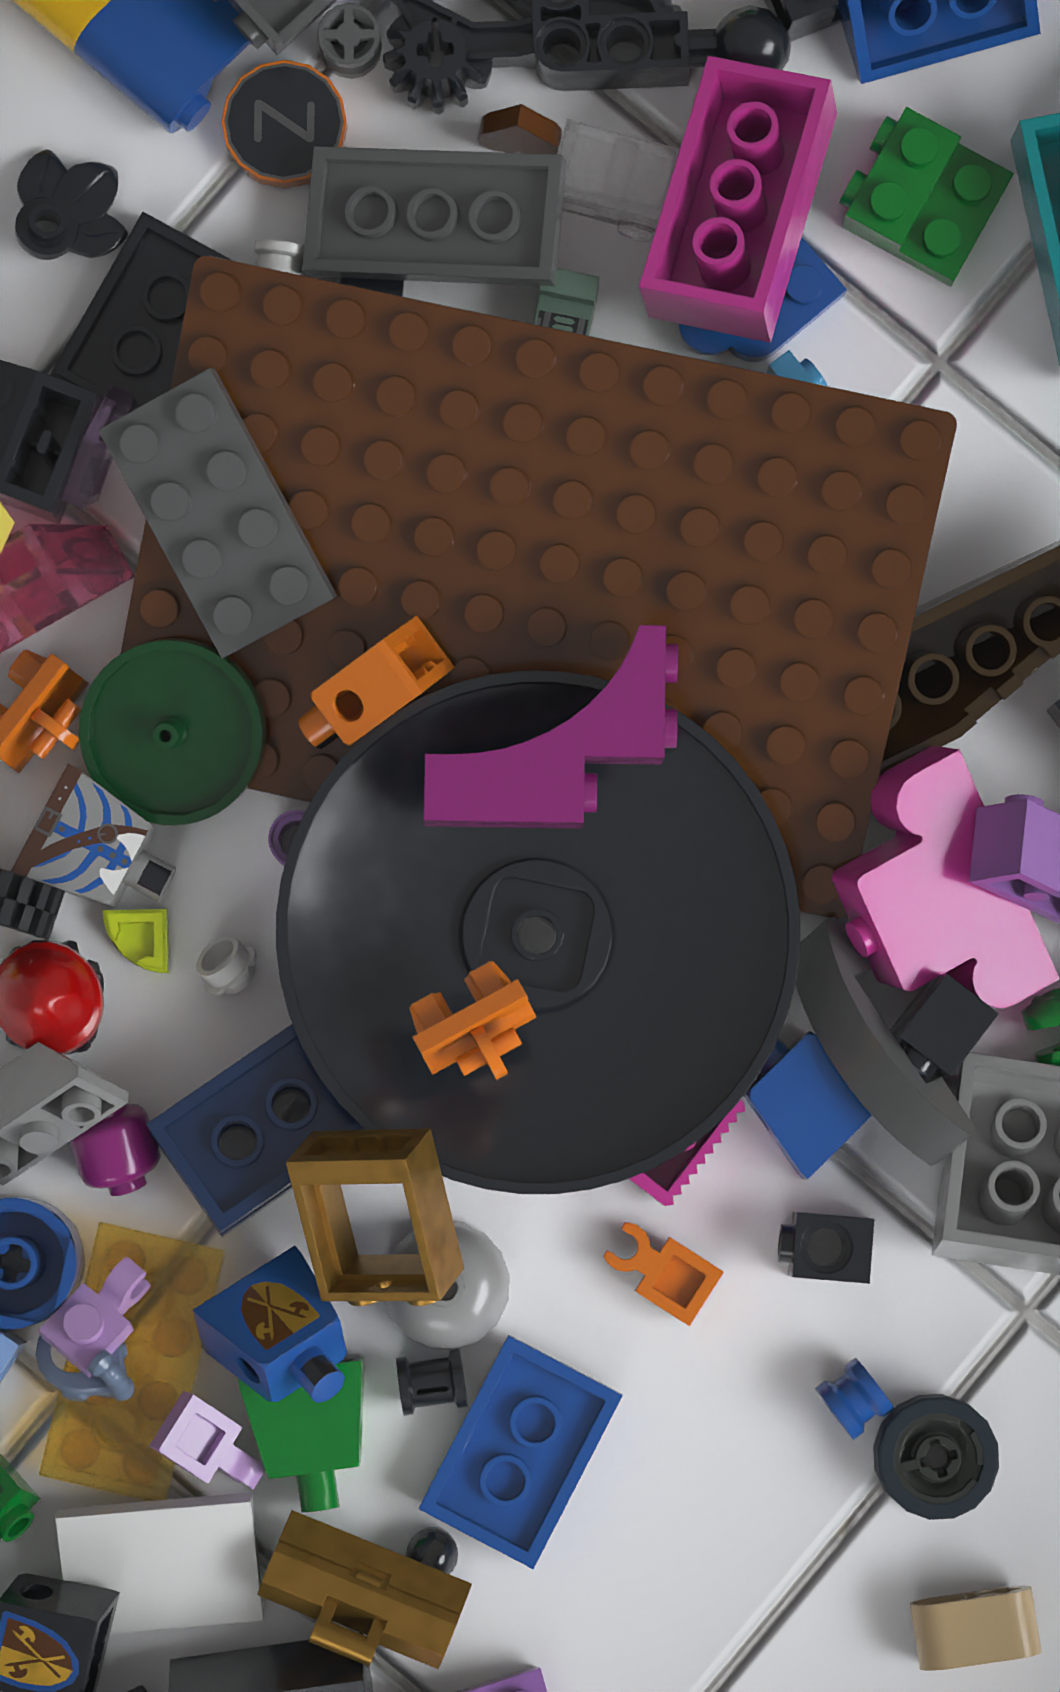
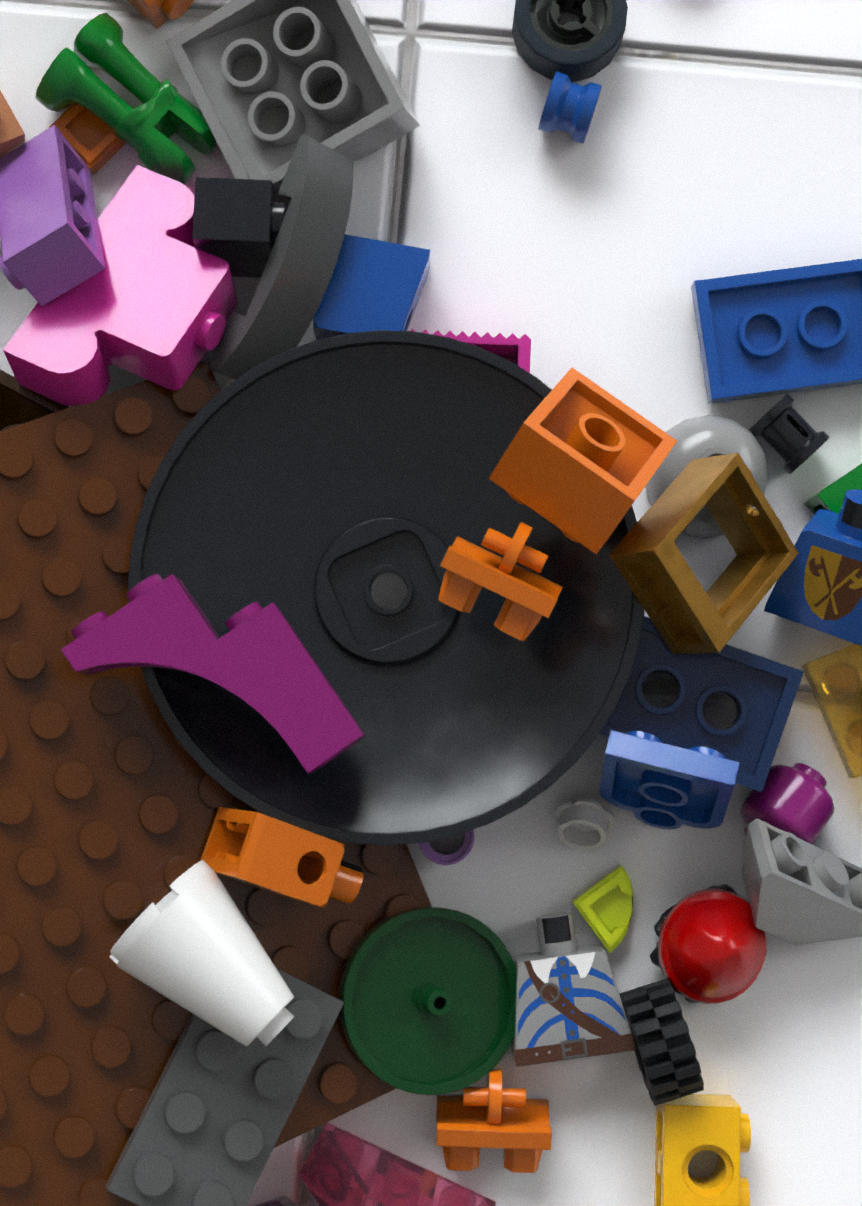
camera: 130 degrees left, 0 degrees up
(210, 1051) = (667, 782): none -> blue plate
(334, 572) = (207, 959): none -> white cone
(524, 1164) = (582, 460): none -> orange slope
(672, 1277) = (577, 307): orange plate -> none
(856, 1250) = (469, 179): black brick -> none

